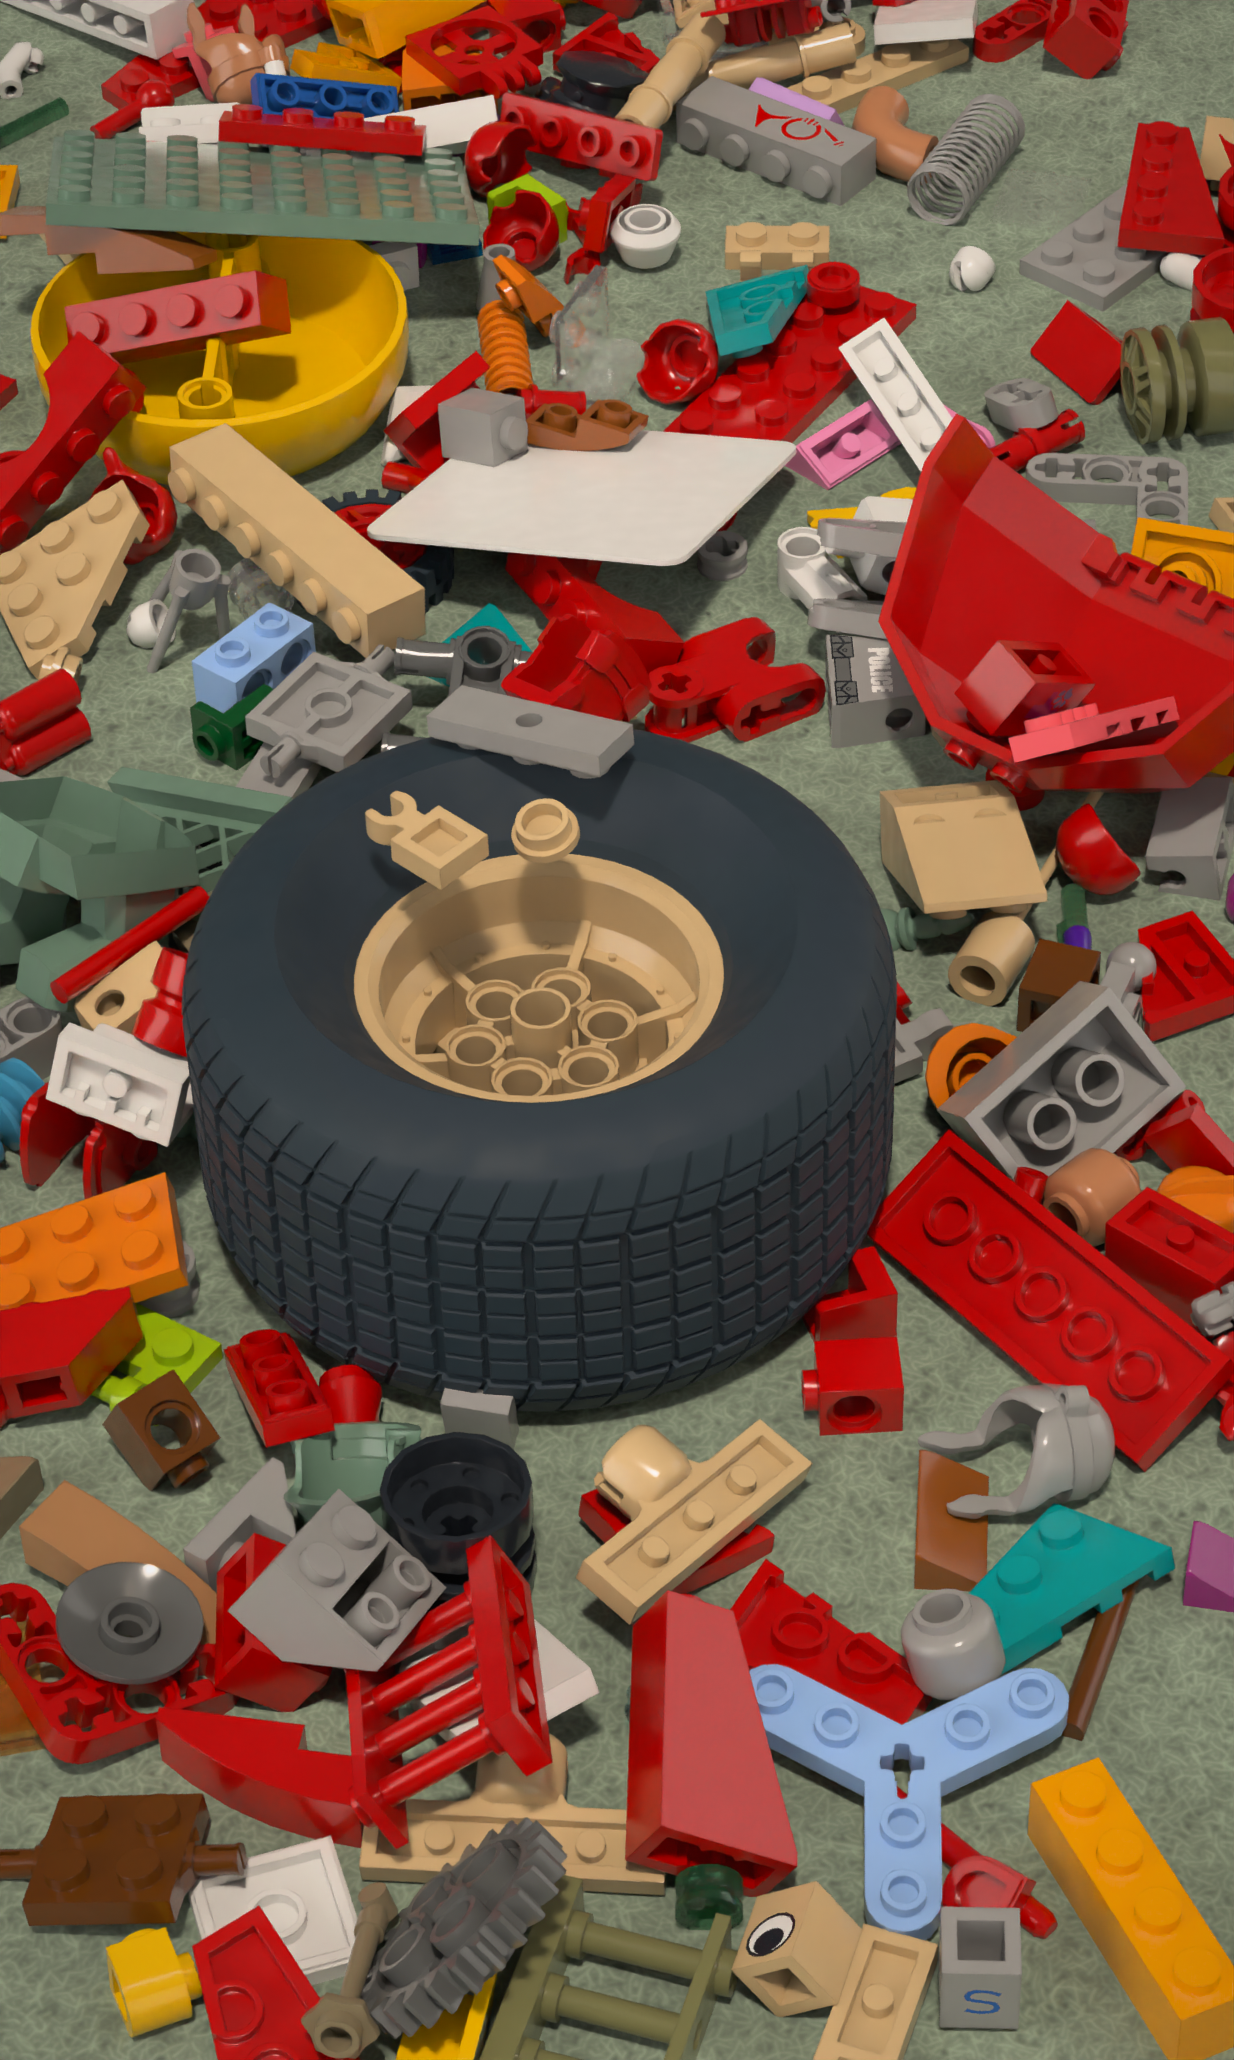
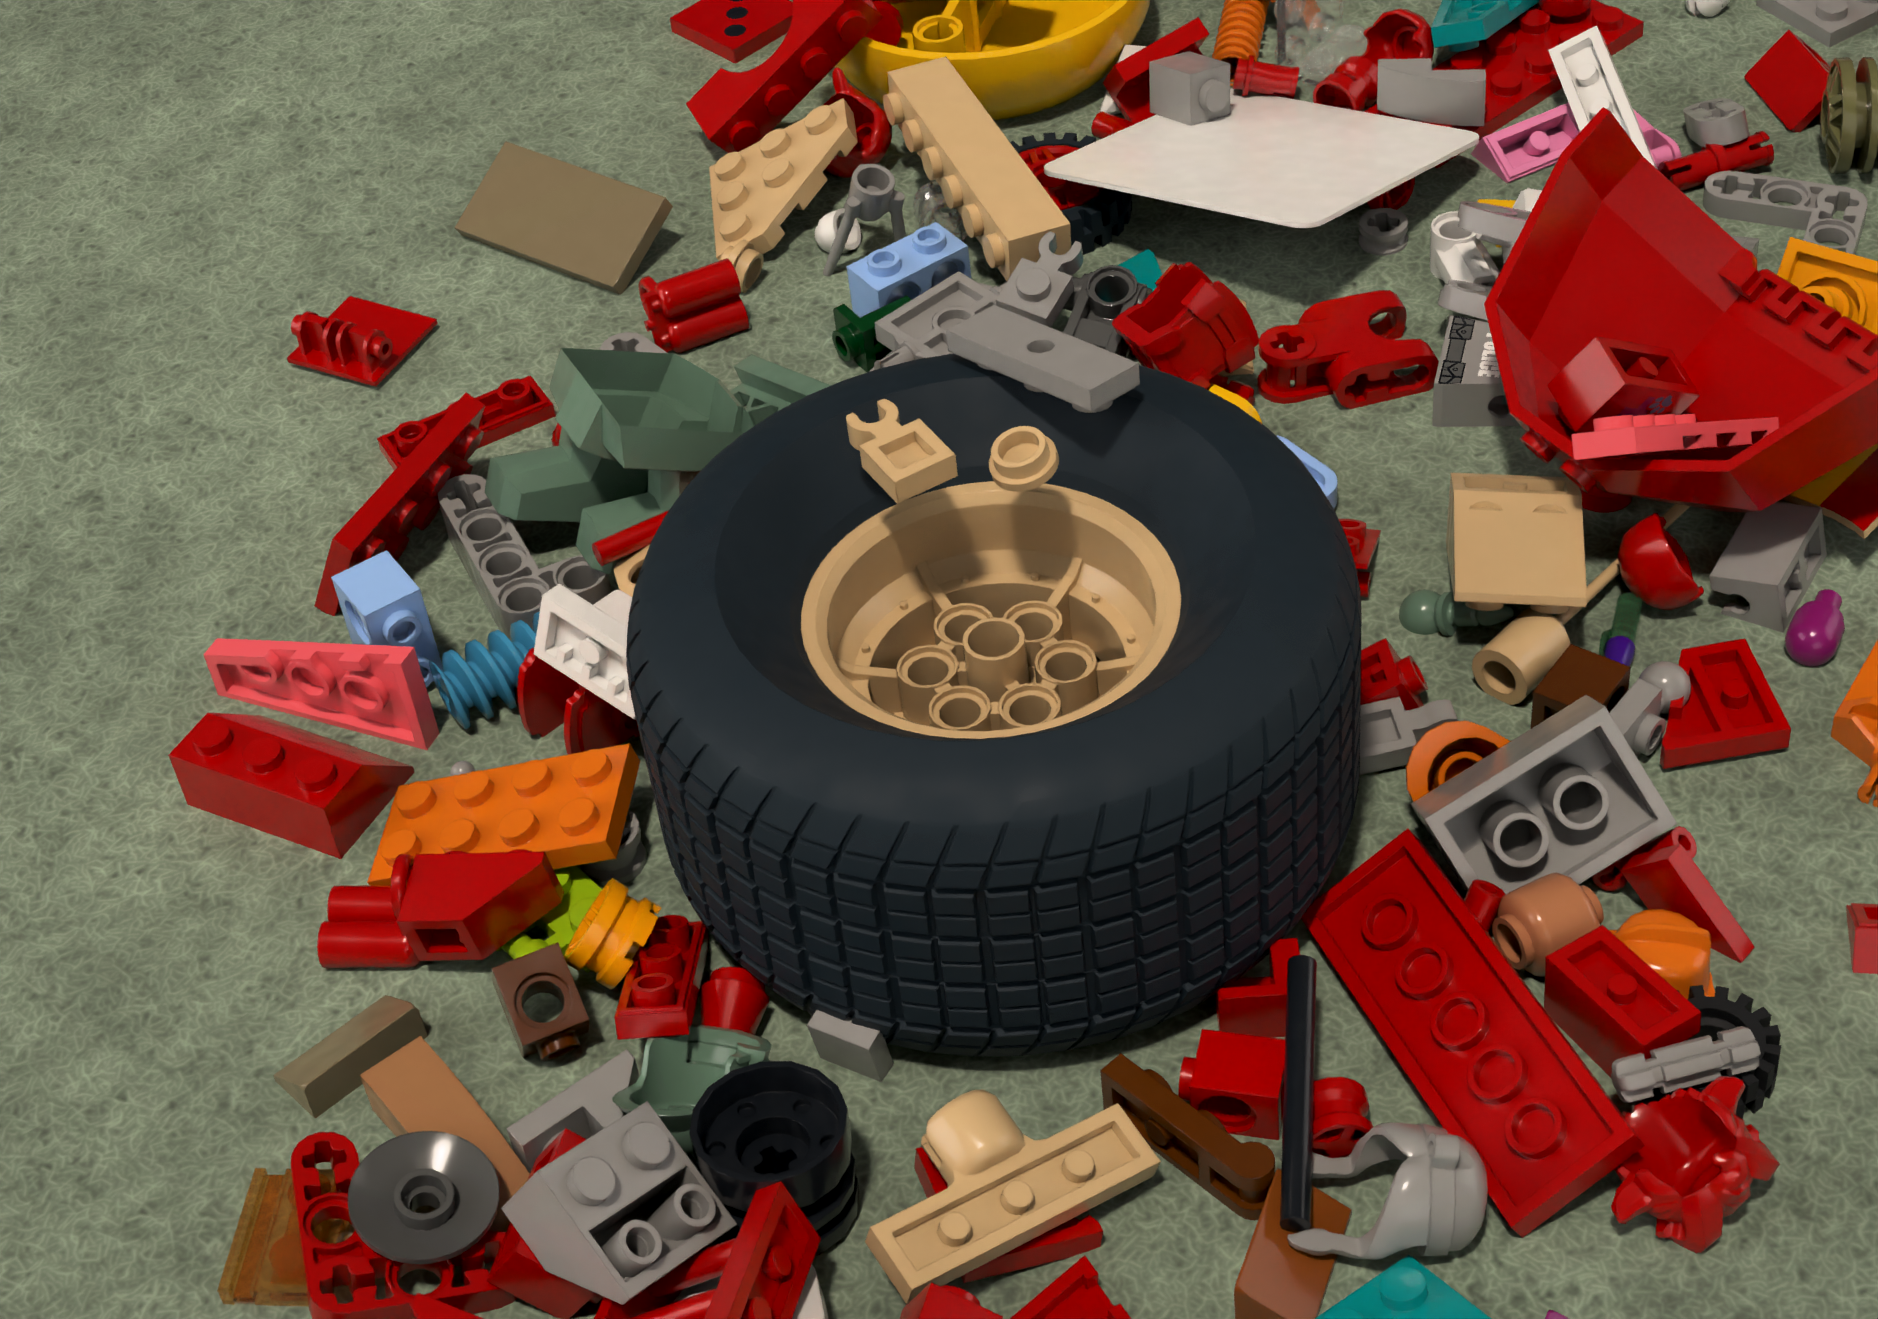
camera: 20 degrees right, 0 degrees up
(214, 1353) = (611, 933): none -> light orange wheel
(412, 659) = (1042, 287): none -> light grey plate
(569, 587) = (1220, 248): red arch -> none
(600, 427) = (1299, 99): dark orange slope -> none
(650, 396) = (1350, 86): none -> red wheel
(720, 407) = (1432, 96): none -> light grey slope
(833, 1441) = (1191, 1138): none -> reddish brown plate
(921, 1380) = (1298, 1094): none -> black bar
(951, 1397) = (1339, 1116): none -> red wheel

